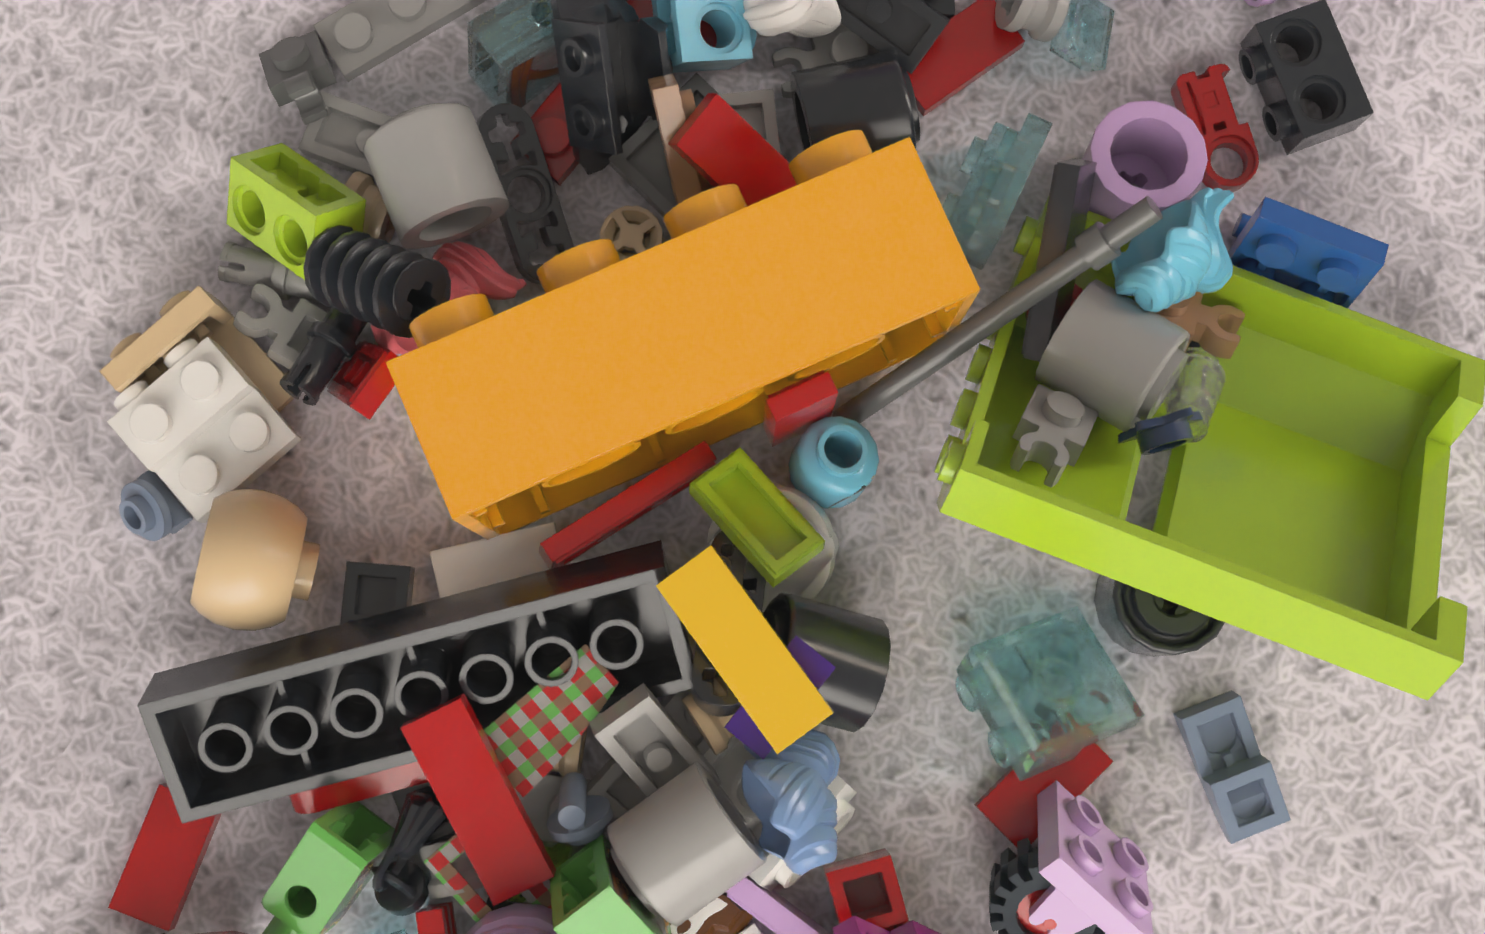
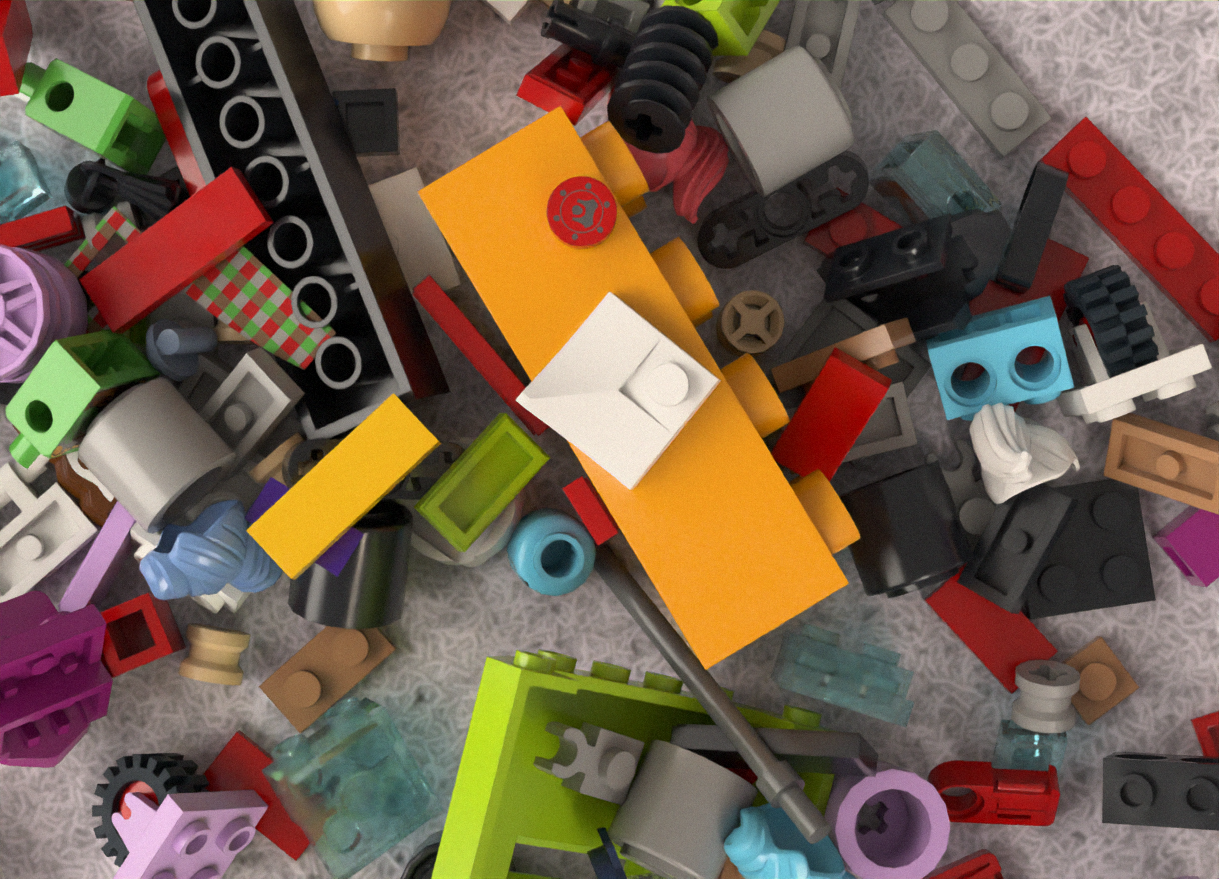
camera: 80 degrees right, 5 degrees up
(498, 351) = (581, 212): none -> red tile
(686, 334) = (619, 390): none -> white plate
(895, 818) = (214, 654): none -> tan wheel
(926, 709) = (325, 672): none -> medium nougat plate
(1121, 60) = (998, 794): none -> red piece

